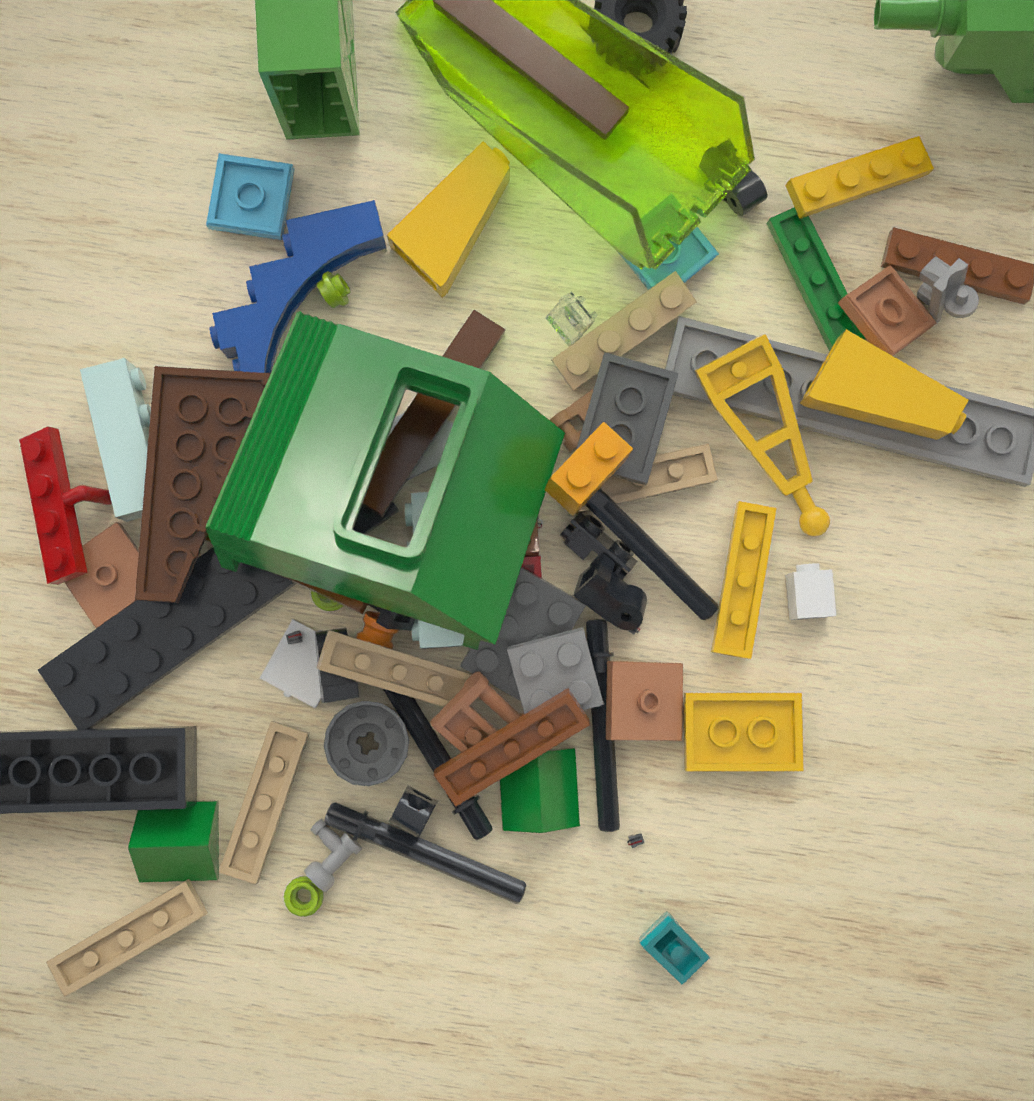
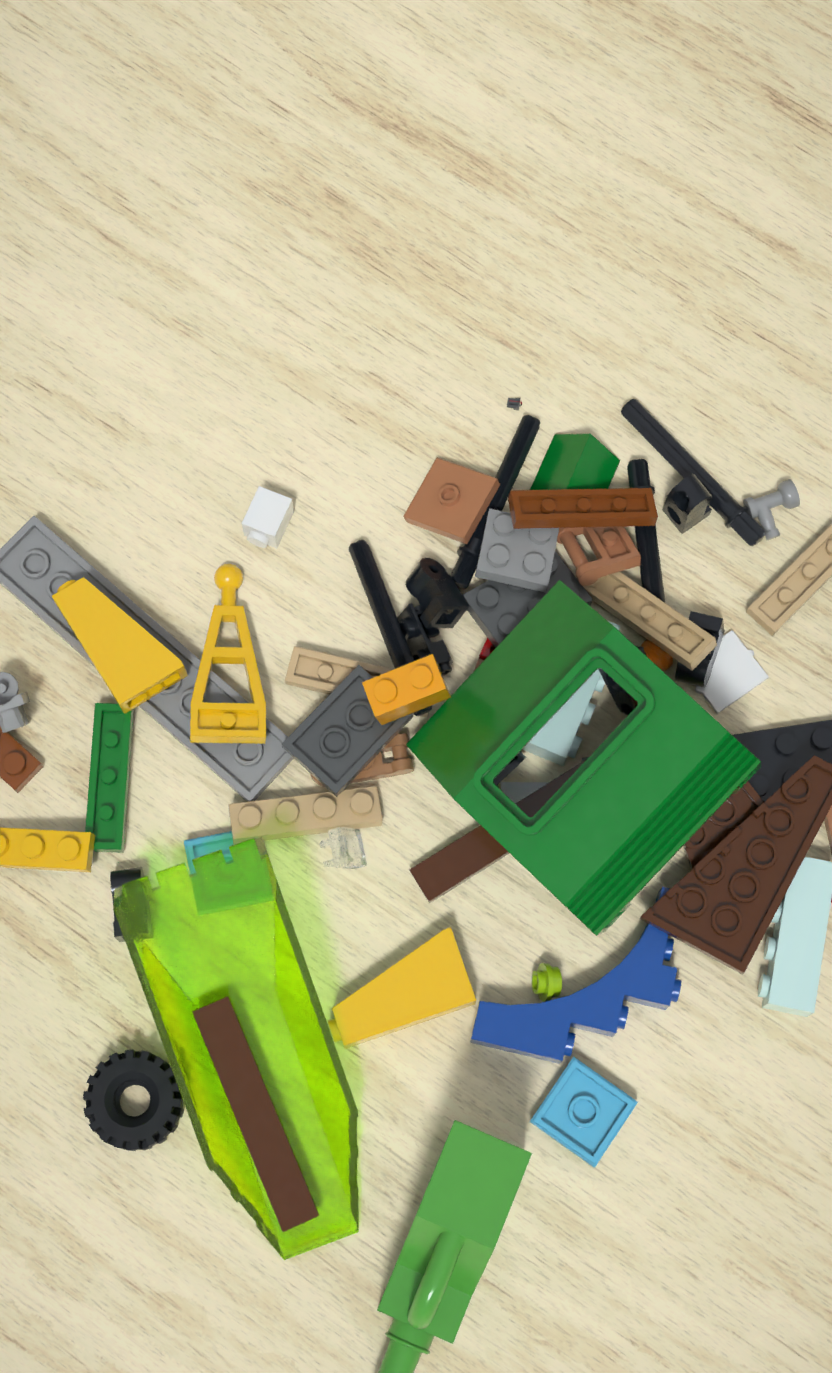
camera: 150 degrees left, 10 degrees down
(295, 637) = (723, 694): dark grey piece -> none
(295, 905) = (816, 480): lime plate -> none
(346, 754) = (701, 552): dark grey wheel -> none
(673, 948) = (529, 310): teal slope -> none
(743, 580) = (316, 557): yellow plate -> none
(743, 732) = (383, 440): yellow plate -> none
(887, 312) = (66, 715): nougat plate -> none

